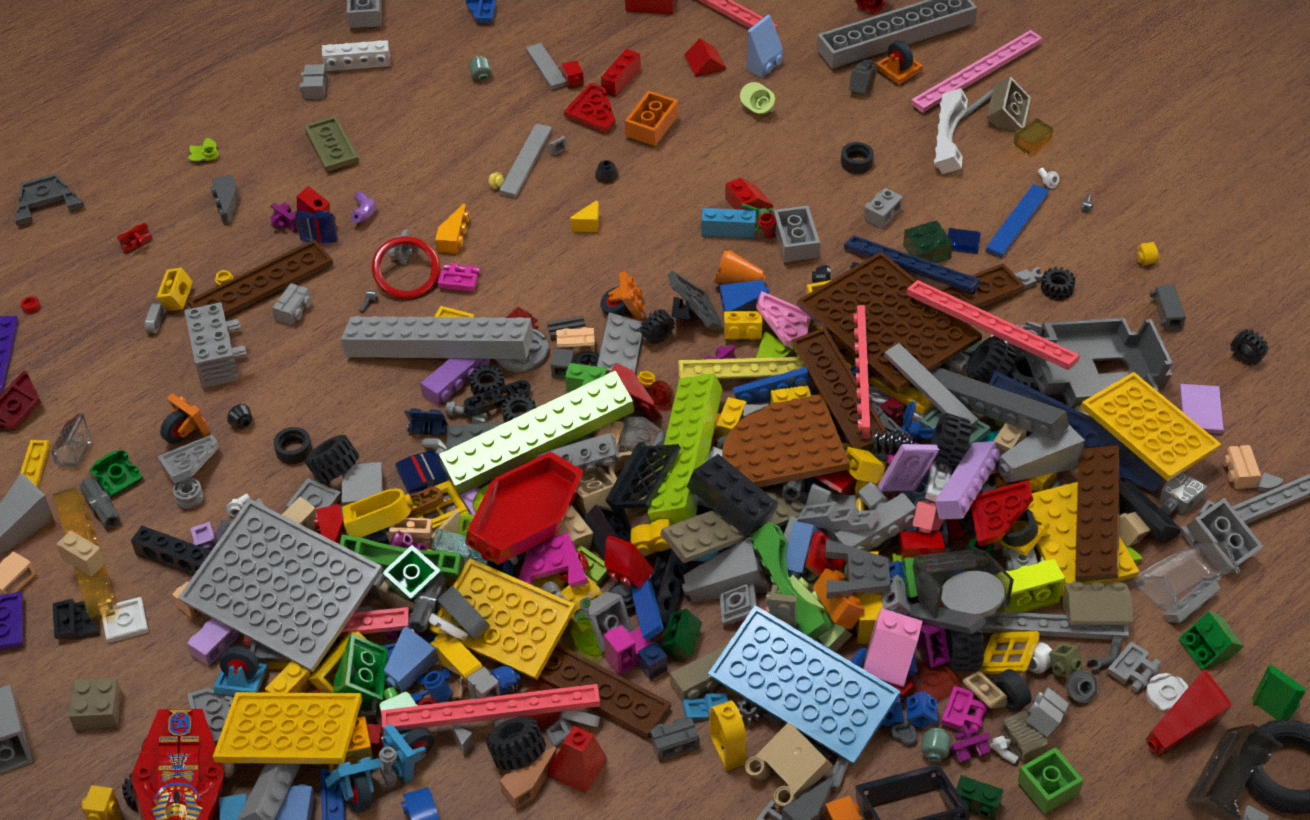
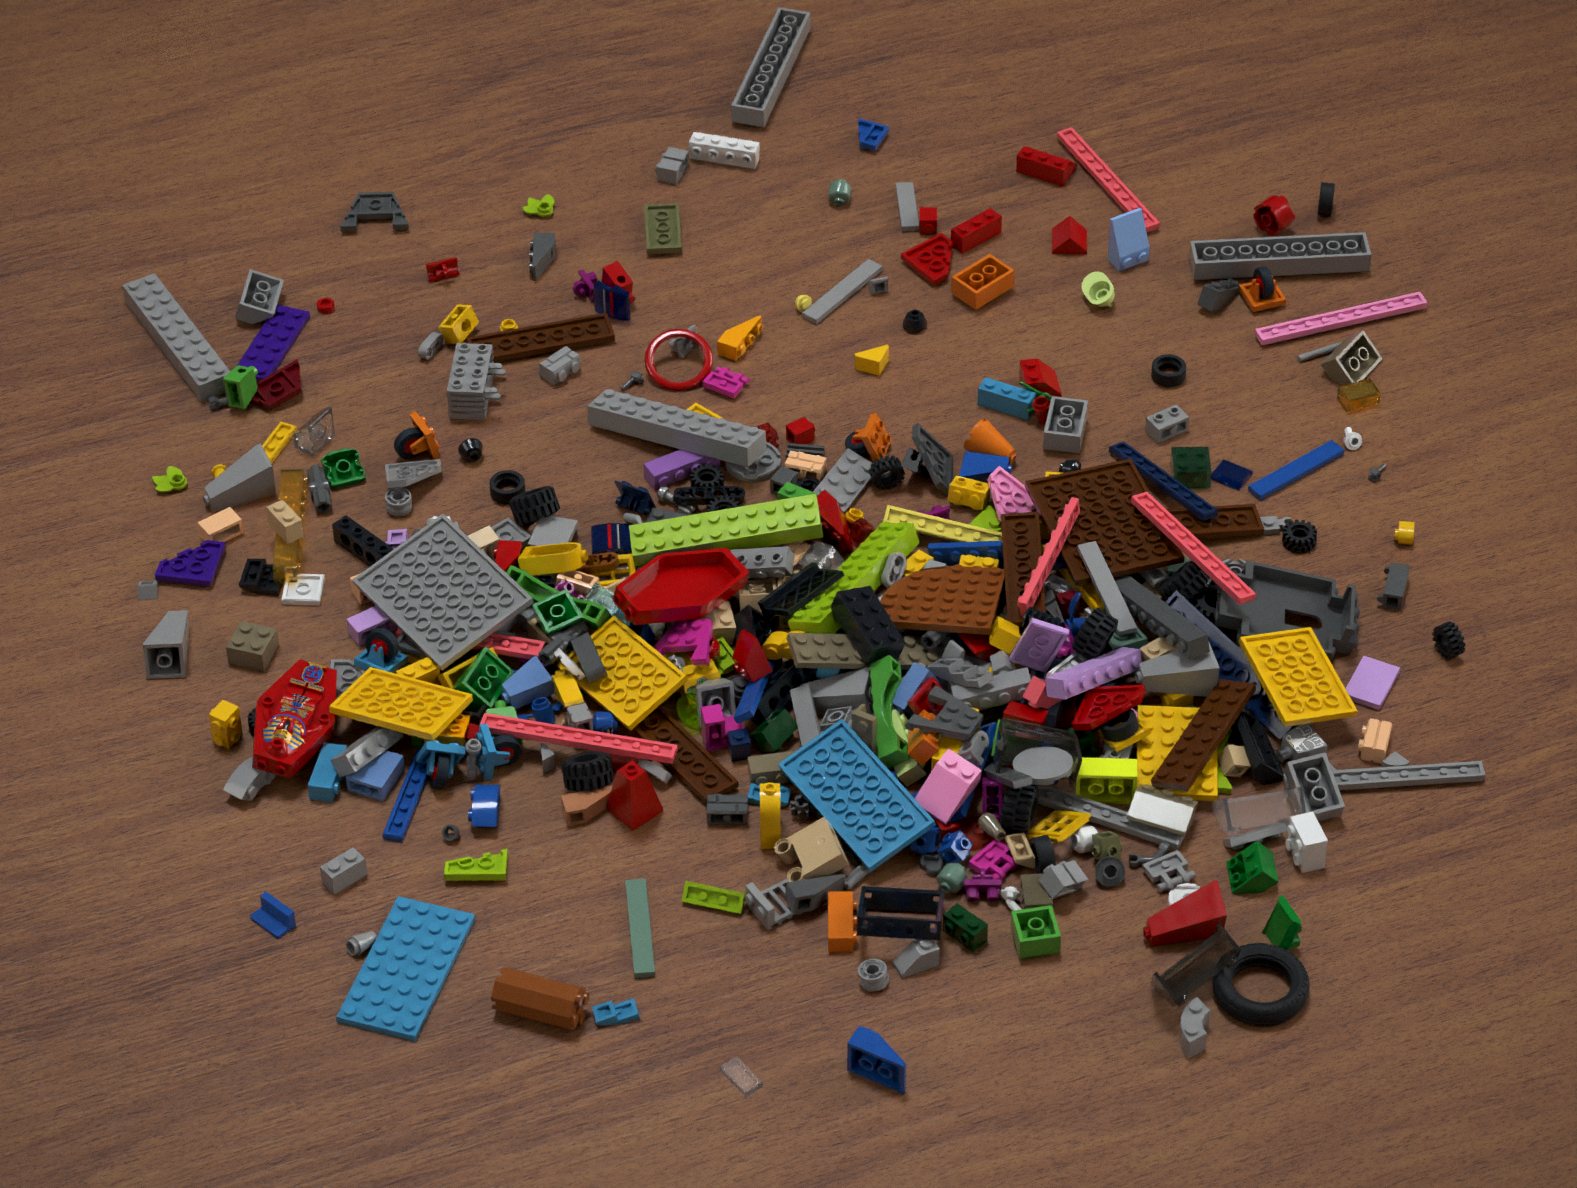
camera: 20 degrees right, 5 degrees down
(366, 209) = (666, 299): medium lavender arm -> none
(554, 308) = (800, 431): none -> red brick
(707, 611) = (805, 713): none -> light grey tile
(718, 426) = (893, 569): none -> light grey plate
(945, 673) = (991, 826): none -> dark tan cone
(953, 107) = (1291, 347): white arch -> none
(1248, 595) = (1306, 842): none -> white brick

